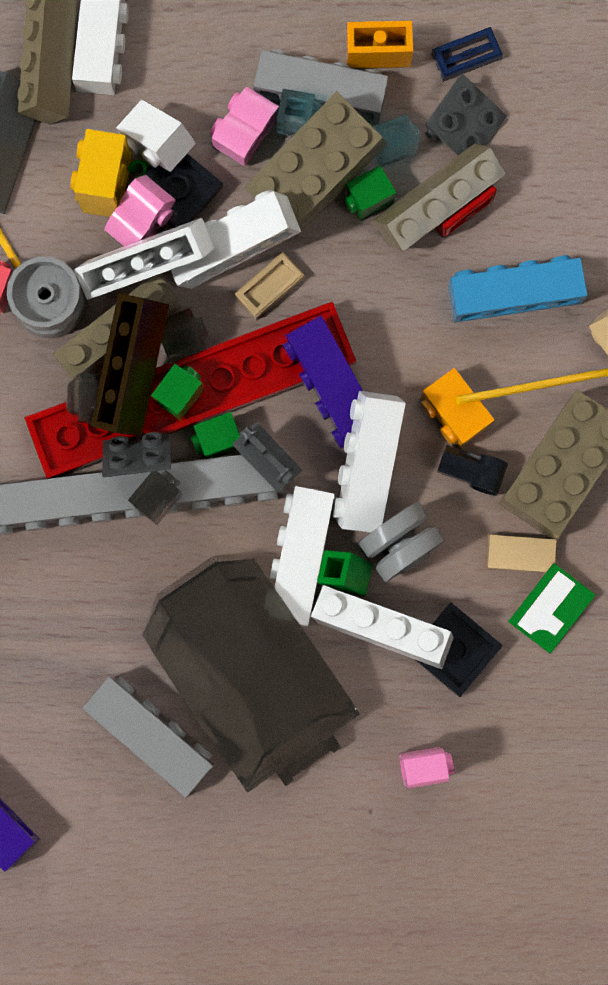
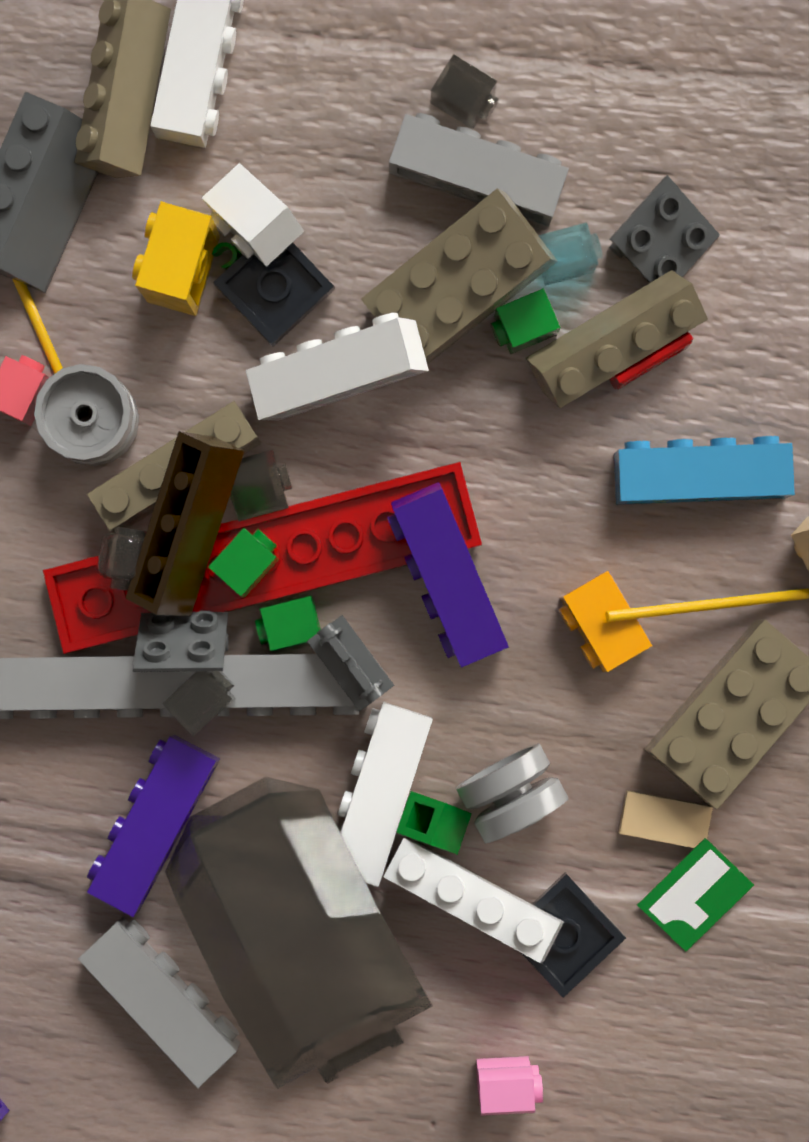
camera: 10 degrees right, 5 degrees up
(128, 601) = (153, 824): none -> dark purple brick
(140, 212) = (221, 319): bright pink brick -> none
(144, 258) = (220, 383): white brick -> none
(244, 126) = (371, 211): bright pink brick -> none
(269, 285) = (380, 428): tan tile -> none
(294, 111) = (440, 203): clear light blue brick -> none
(303, 31) = (464, 92): none -> clear smoke brick
(369, 461) = (481, 684): white brick -> none
(379, 44) = (562, 122): light orange brick -> none
(449, 73) = (642, 154): dark blue tile -> none
(481, 472) = (624, 707): black piece -> none

